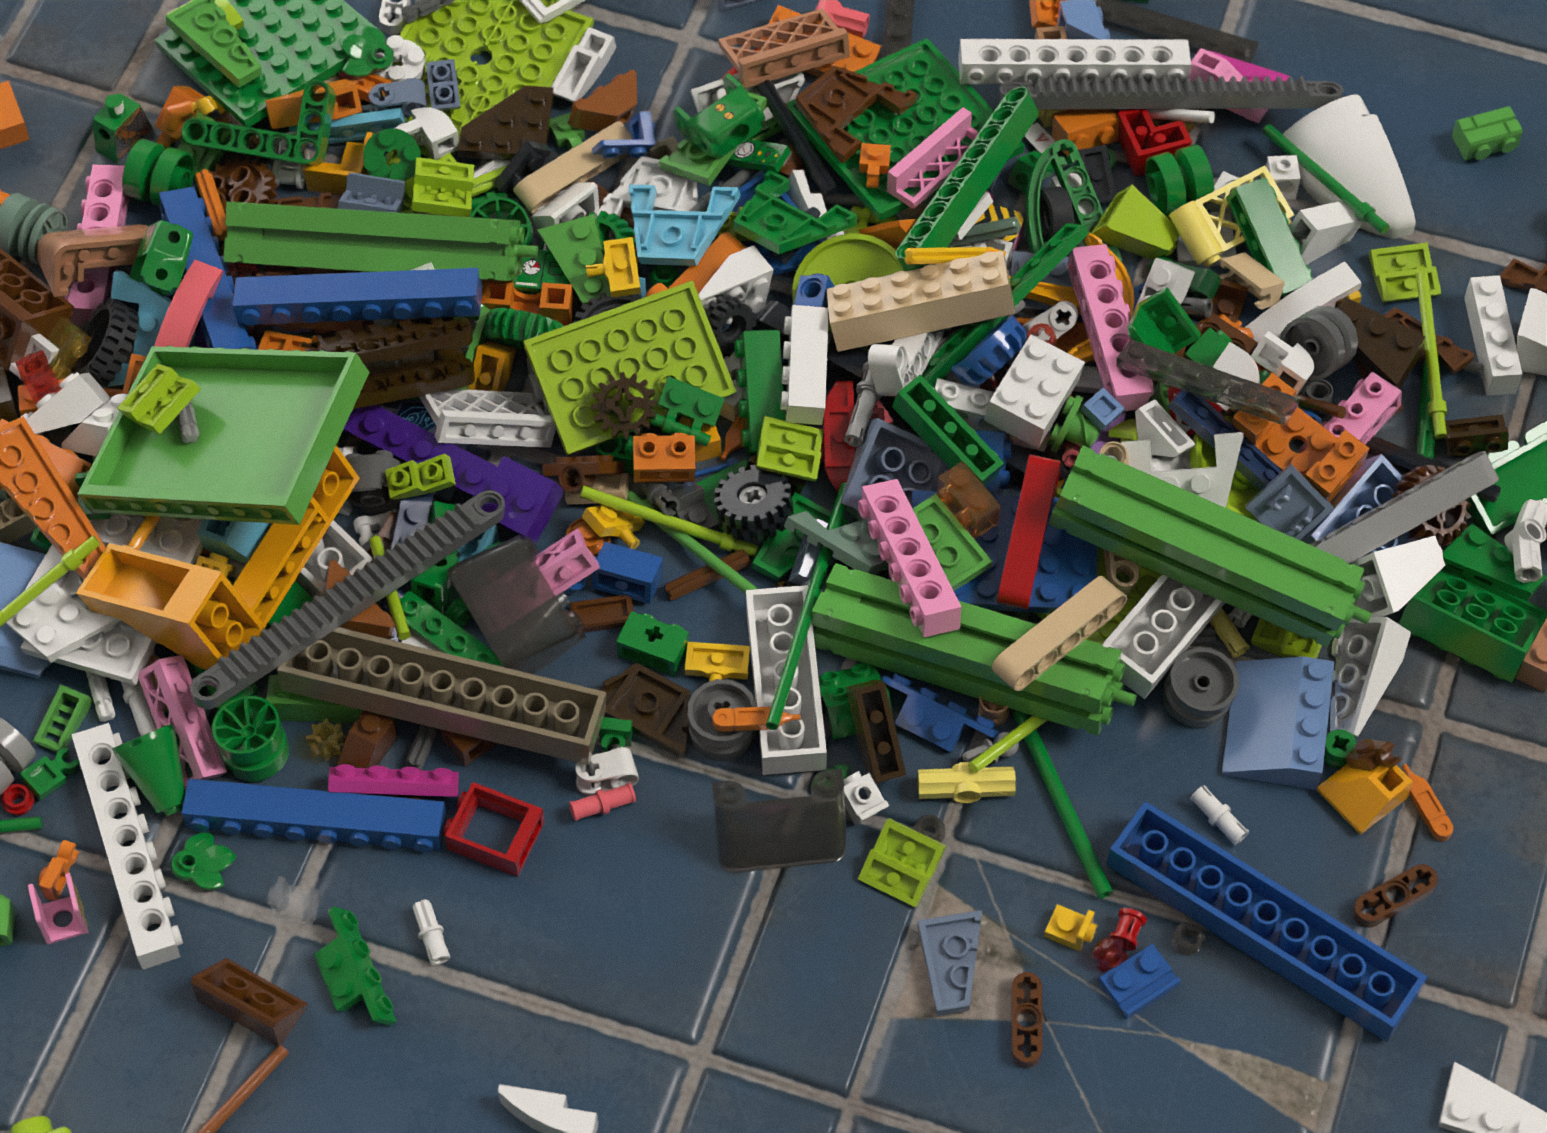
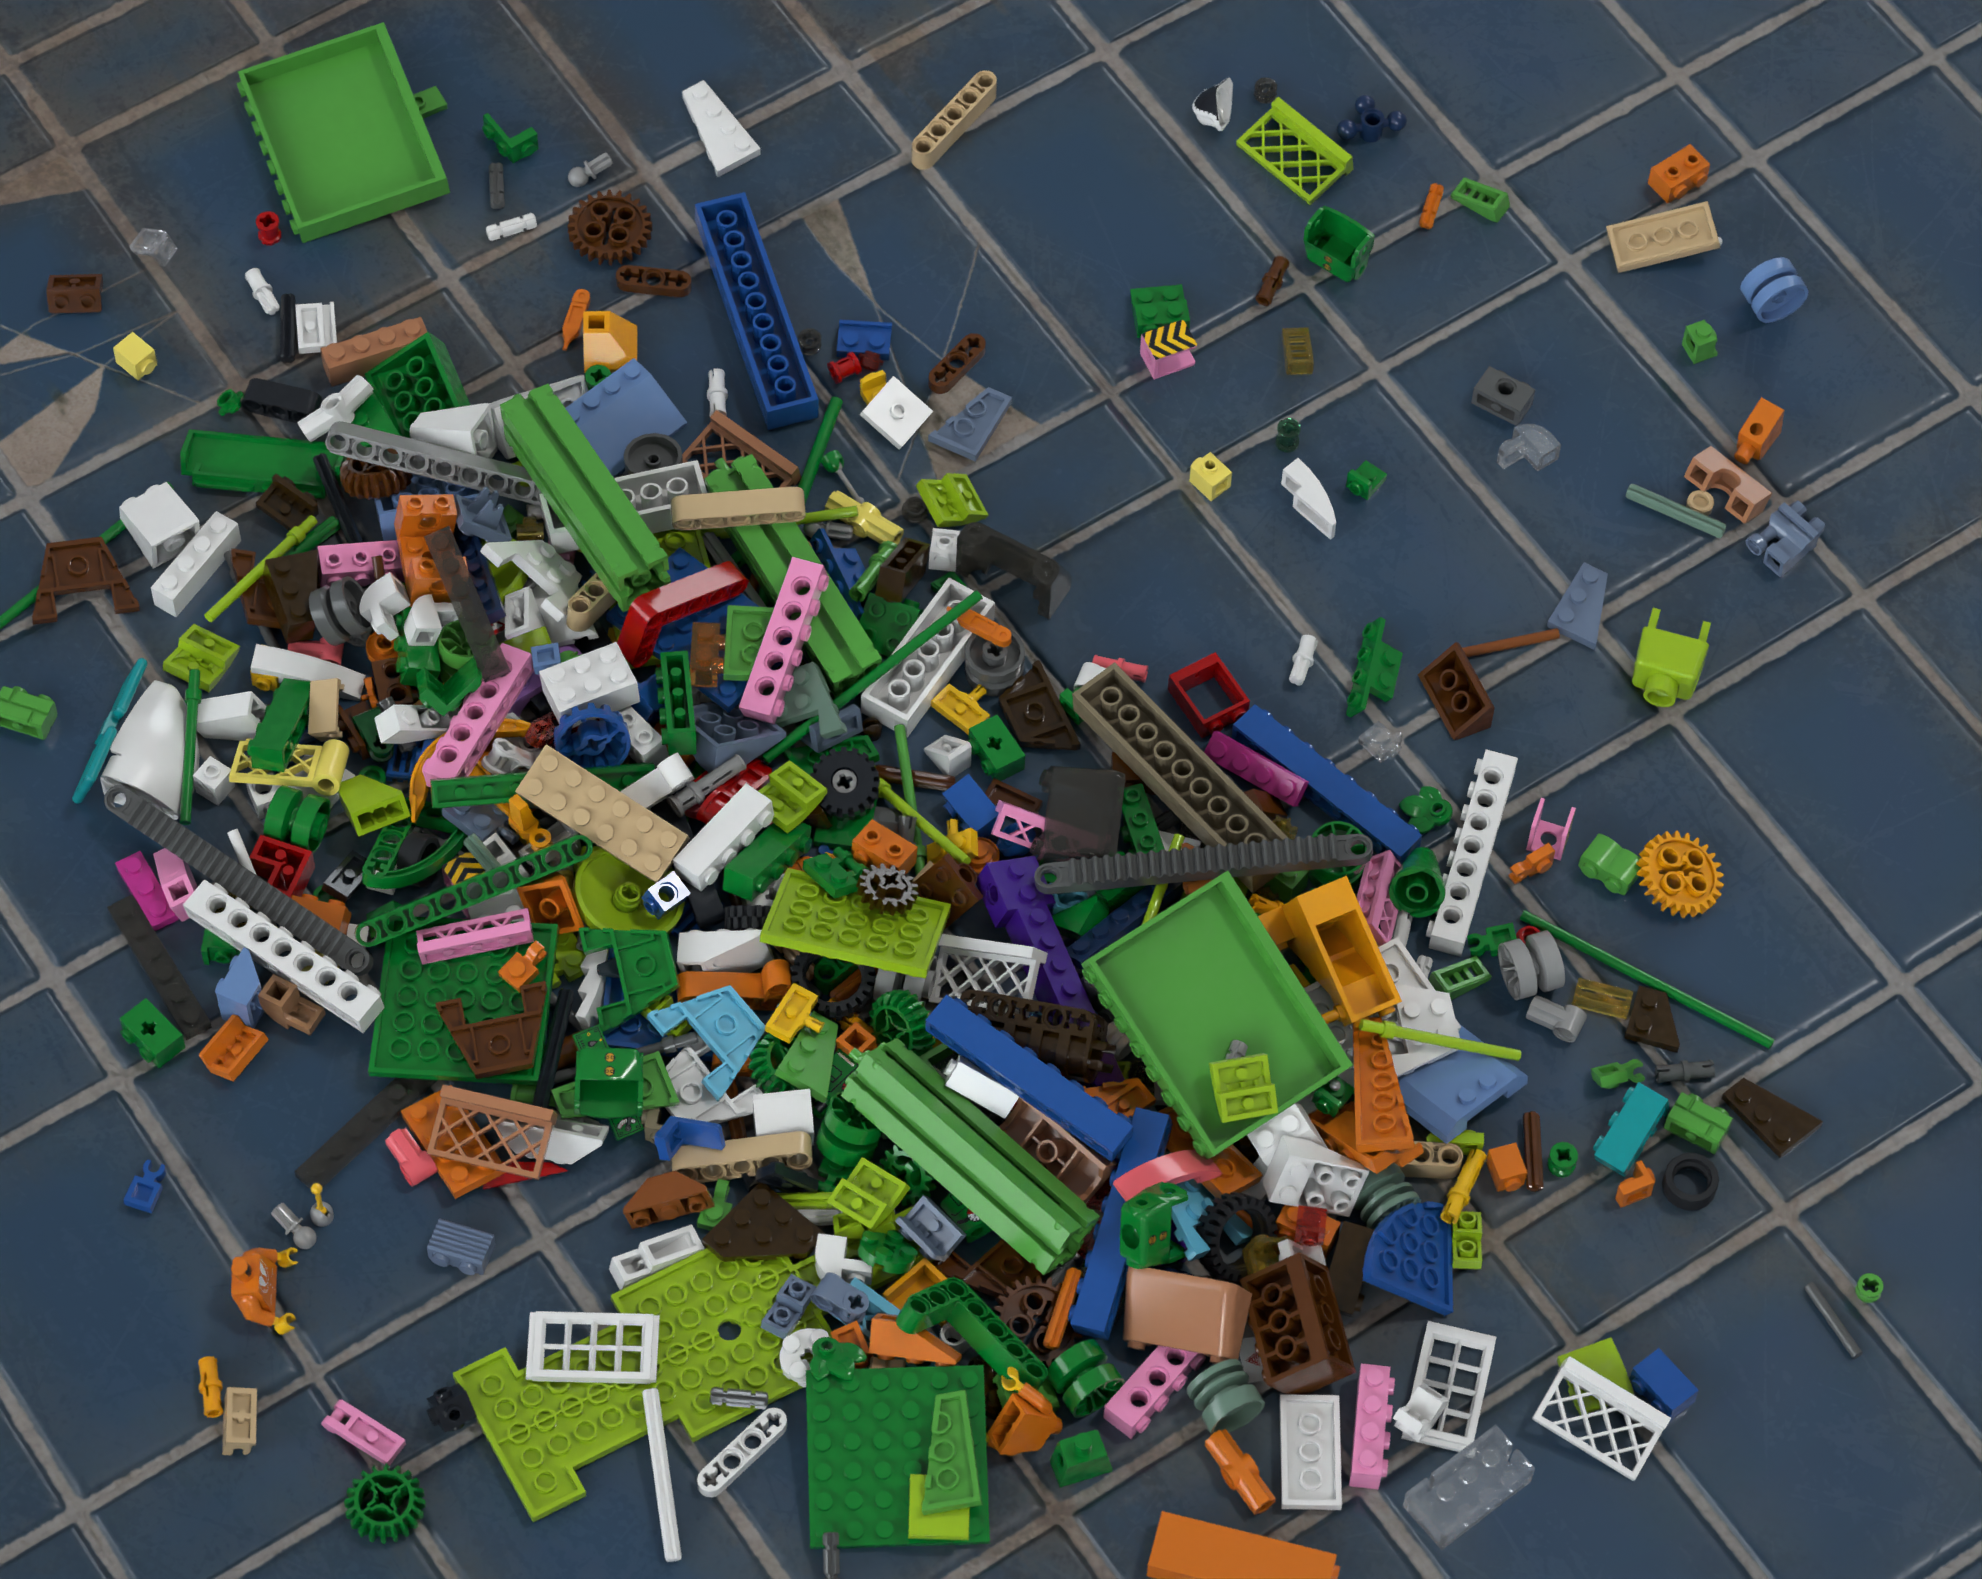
camera: 145 degrees left, 0 degrees up
(420, 478) = (1076, 940): lime slope -> none
(671, 1067) = (1210, 476): none -> light yellow brick
(693, 610) = (950, 755): none -> white slope
(908, 737) = (870, 575): none -> bright green pin
(941, 255) = (548, 832): yellow axle -> none
(1033, 913) = (896, 412): none -> white plate
(1045, 822) = (834, 463): none -> hinge
(1131, 778) = (746, 443): none -> nougat fence
(1370, 753) = (590, 348): reddish brown plate -> none
(1401, 148) = (108, 731): none -> teal bar
(1515, 906) = (595, 219): none -> reddish brown gear

